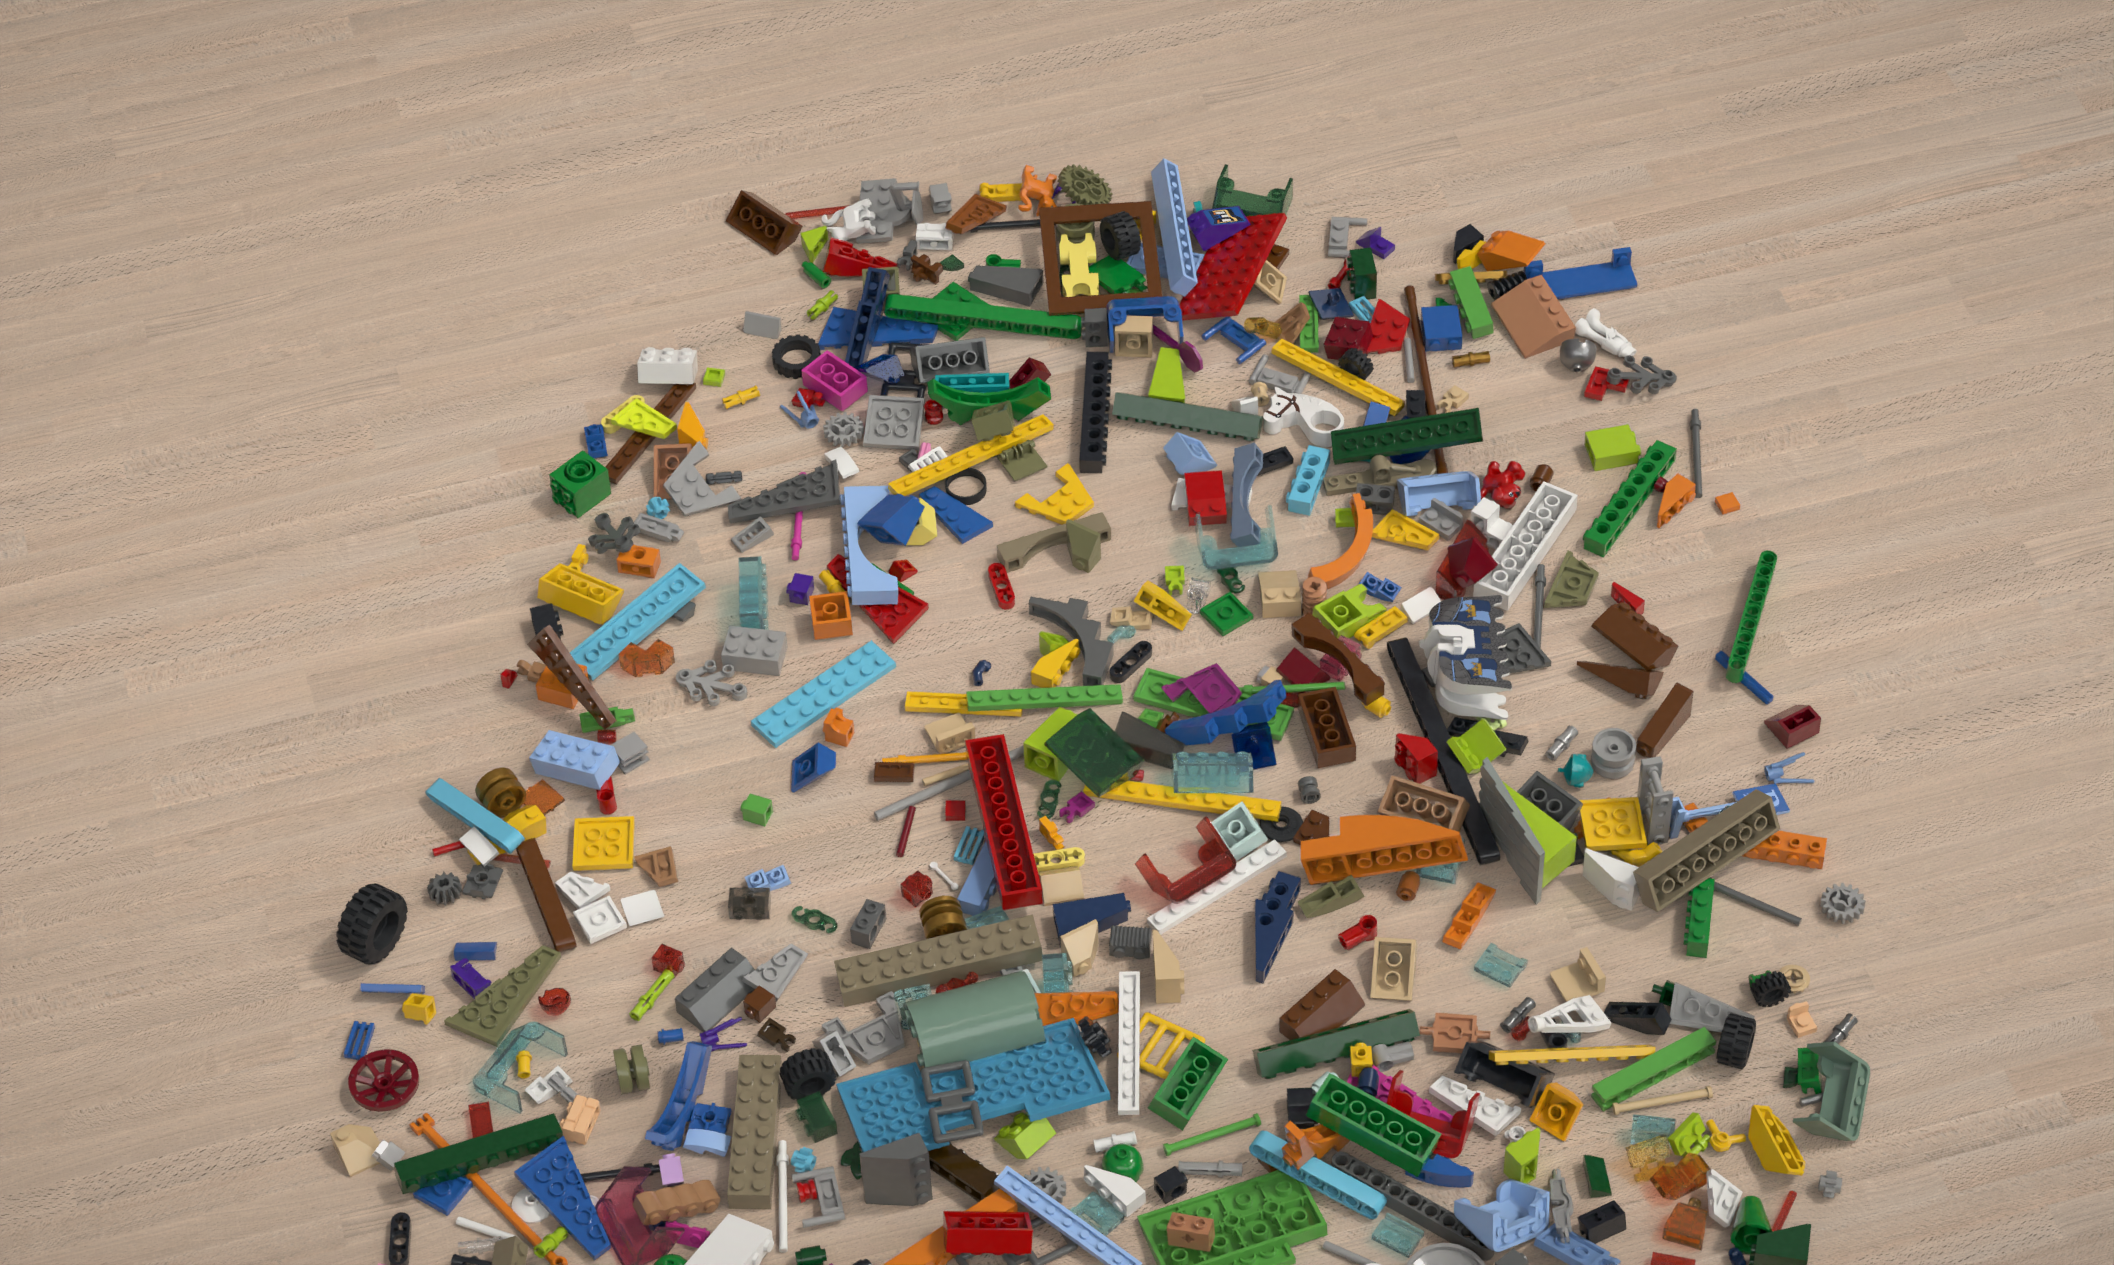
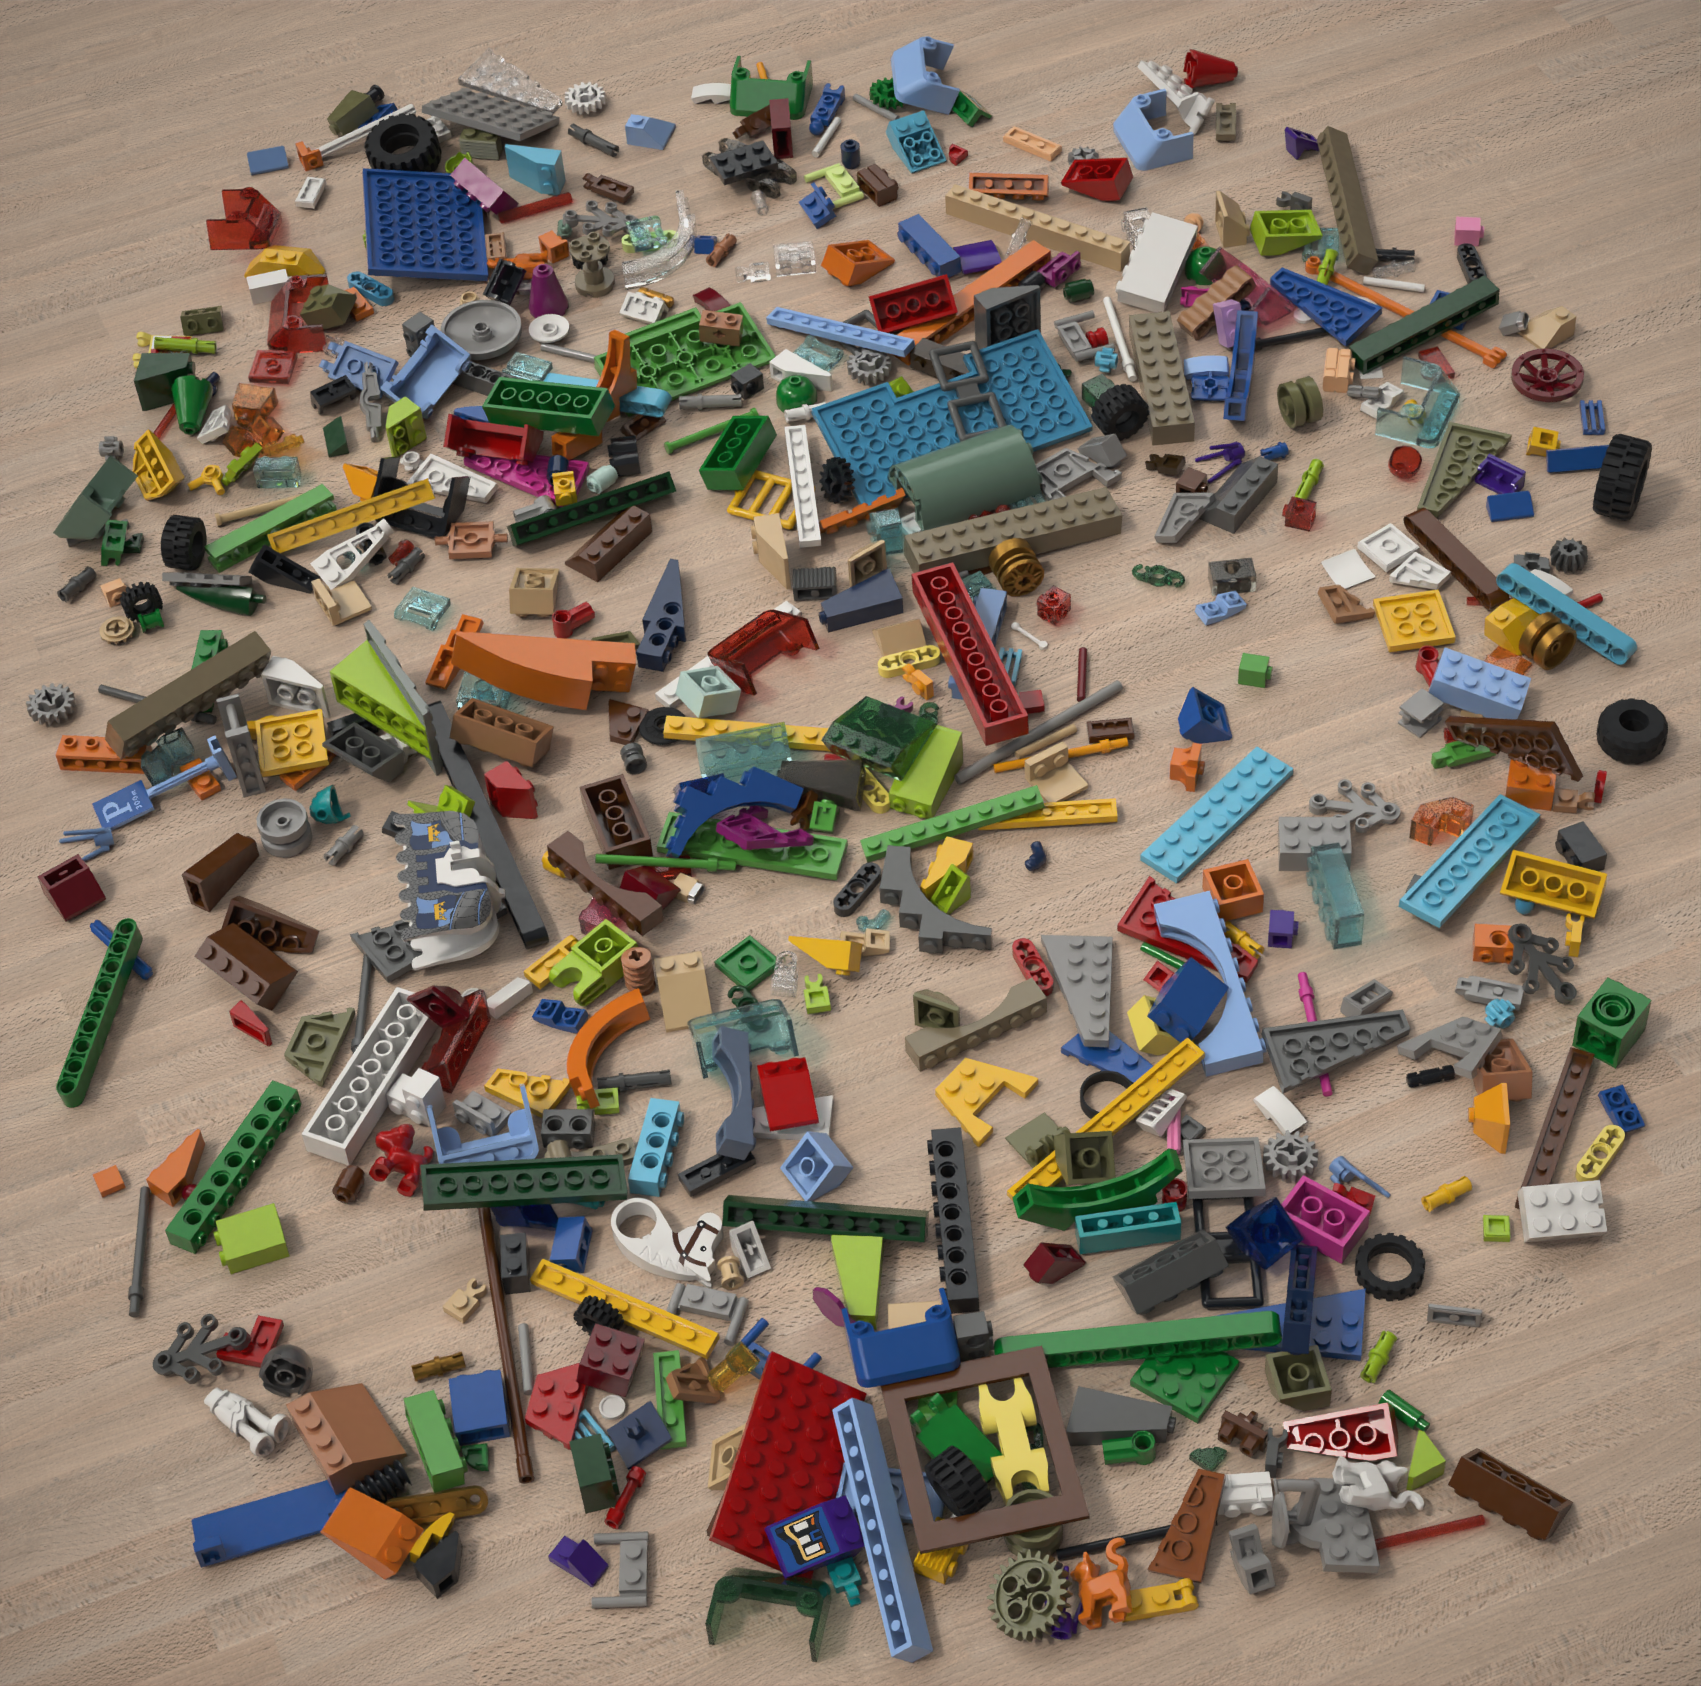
camera: 175 degrees right, 0 degrees up
(460, 701) = (1632, 731): none -> black tyre
(644, 419) = (1566, 1127): neon yellow wing -> none
(868, 924) = (1097, 568): dark grey brick -> none
(963, 572) = (1084, 976): none -> light grey wing
(1322, 530) = (634, 1081): none -> dark grey pin

